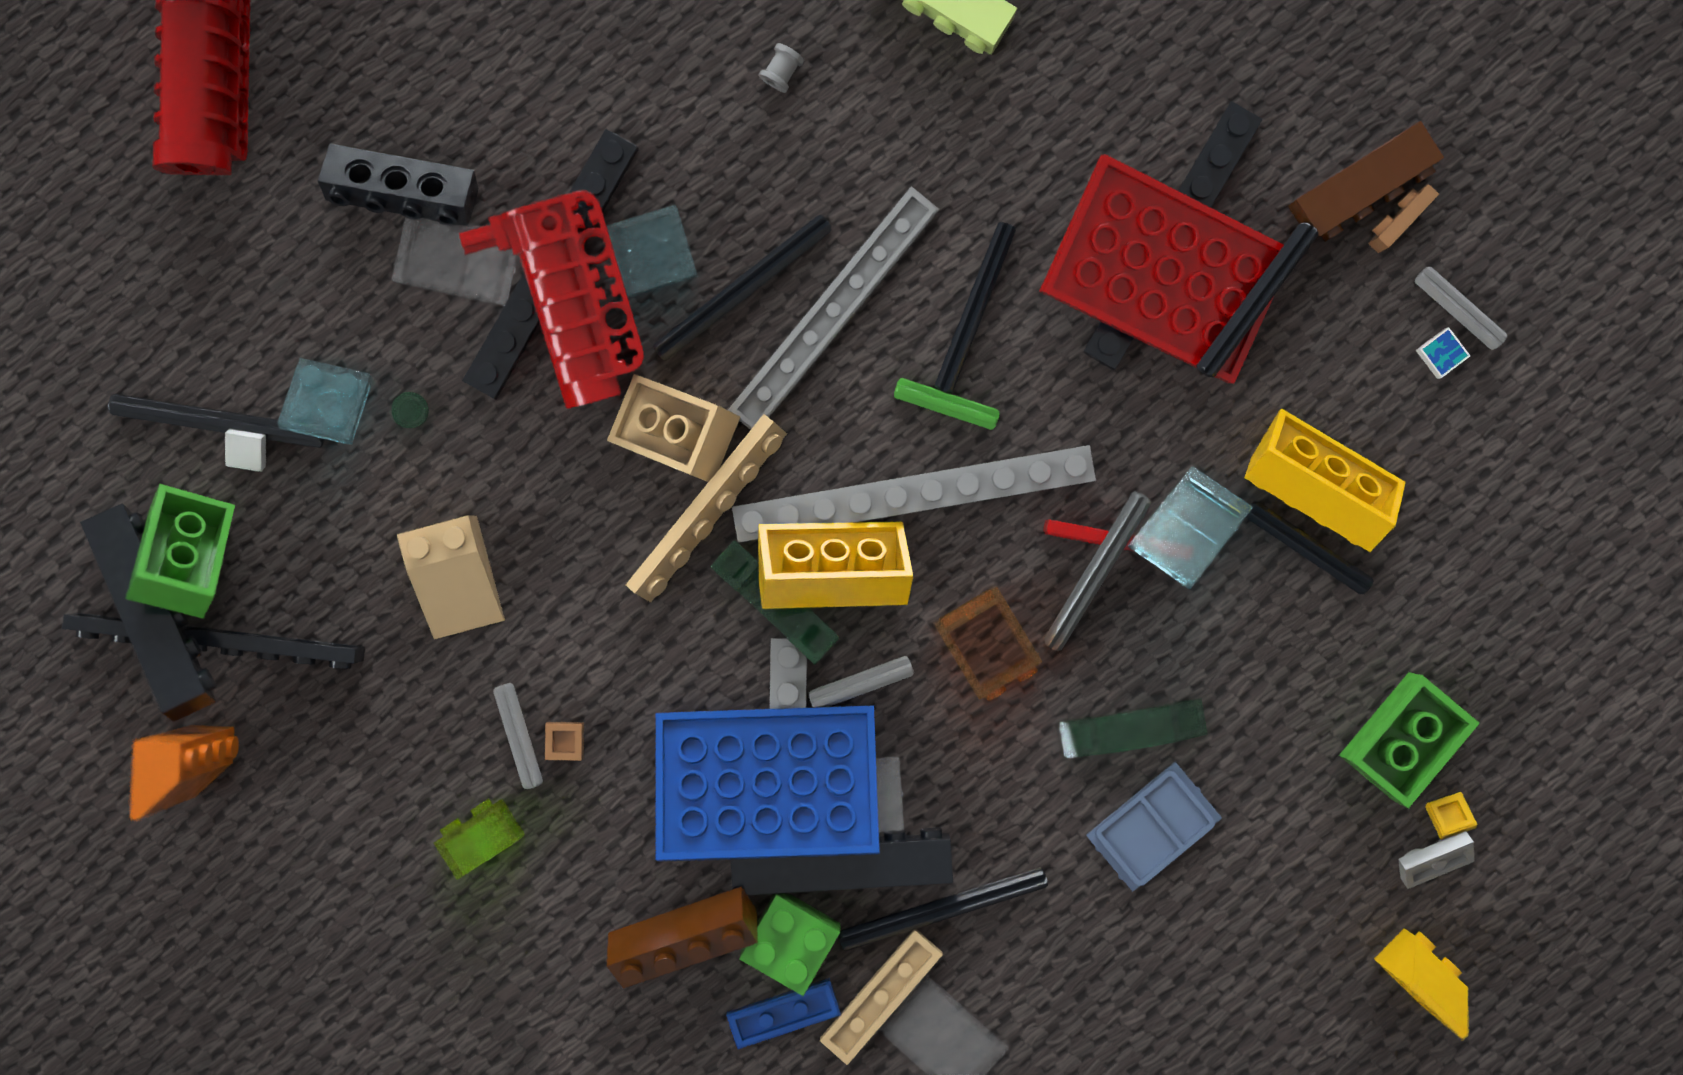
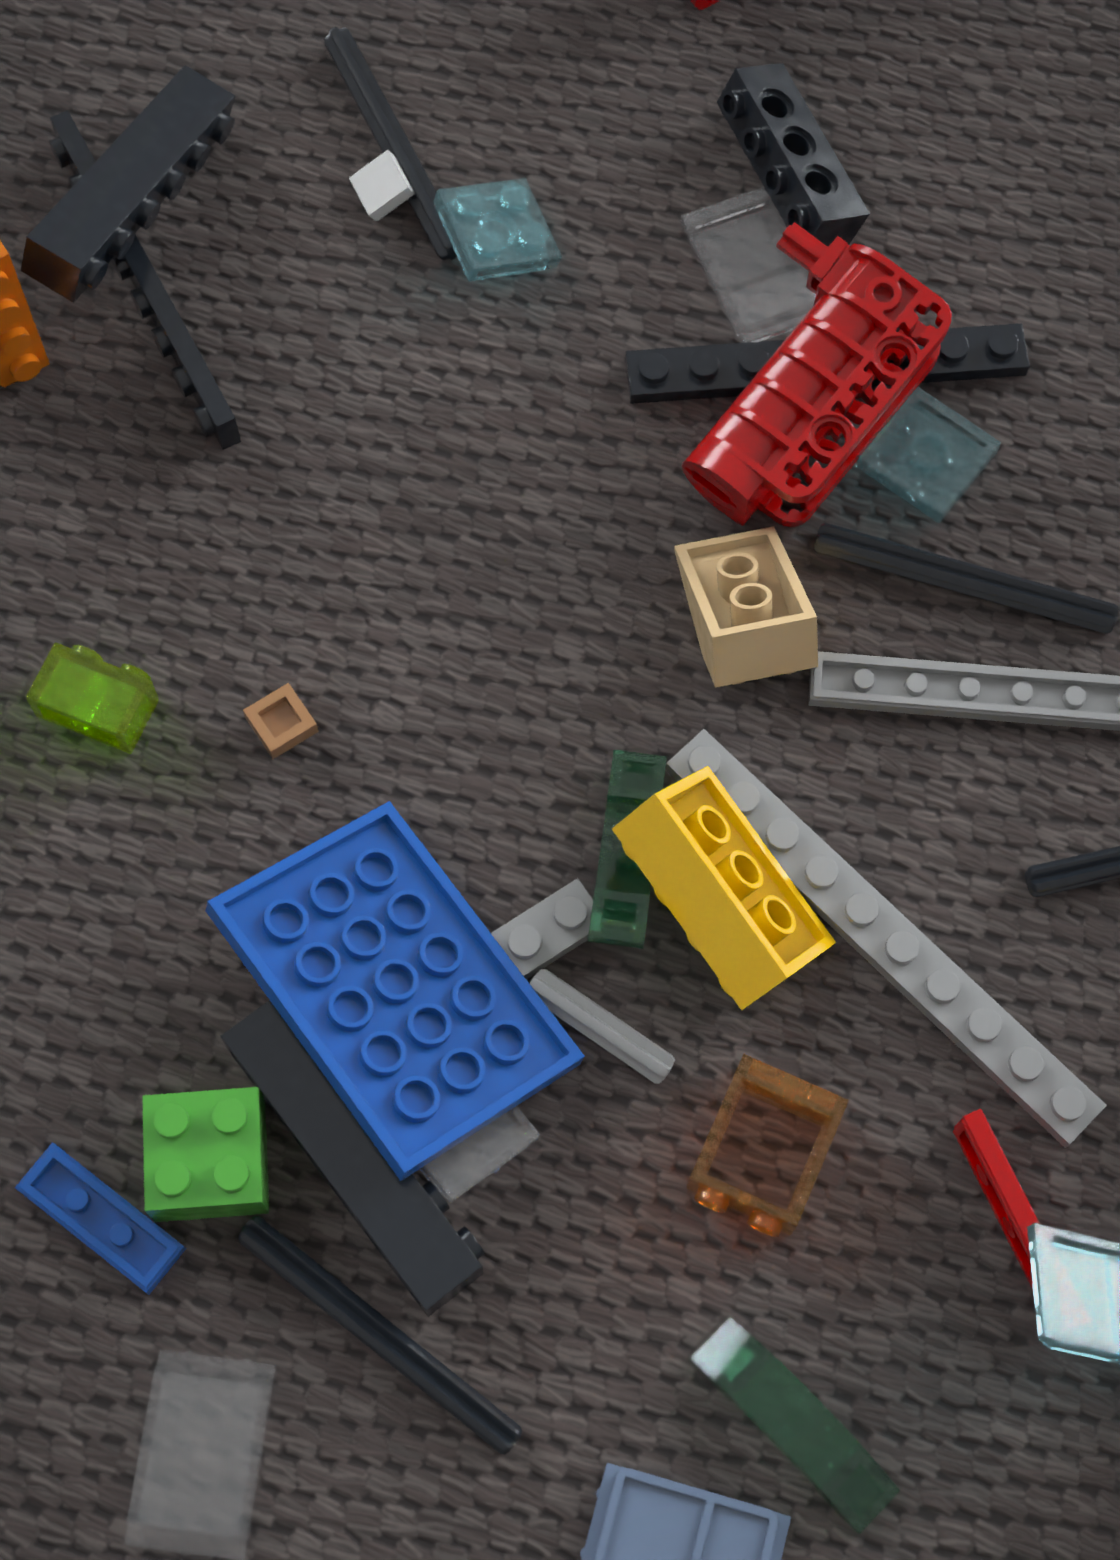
camera: 55 degrees right, 20 degrees down
(181, 551) = (223, 168): bright green brick -> none
(410, 410) = (551, 320): clear green plate -> none
(451, 576) = (394, 473): tan slope -> none
(518, 736) = (249, 667): light grey axle -> none
(682, 937) = (125, 1008): reddish brown brick -> none
(706, 509) = (681, 699): tan plate -> none
(881, 996) = (206, 1328): tan plate -> none
(946, 403) = (1018, 898): bright green axle -> none
(1097, 571) = (963, 1215): dark grey axle -> none

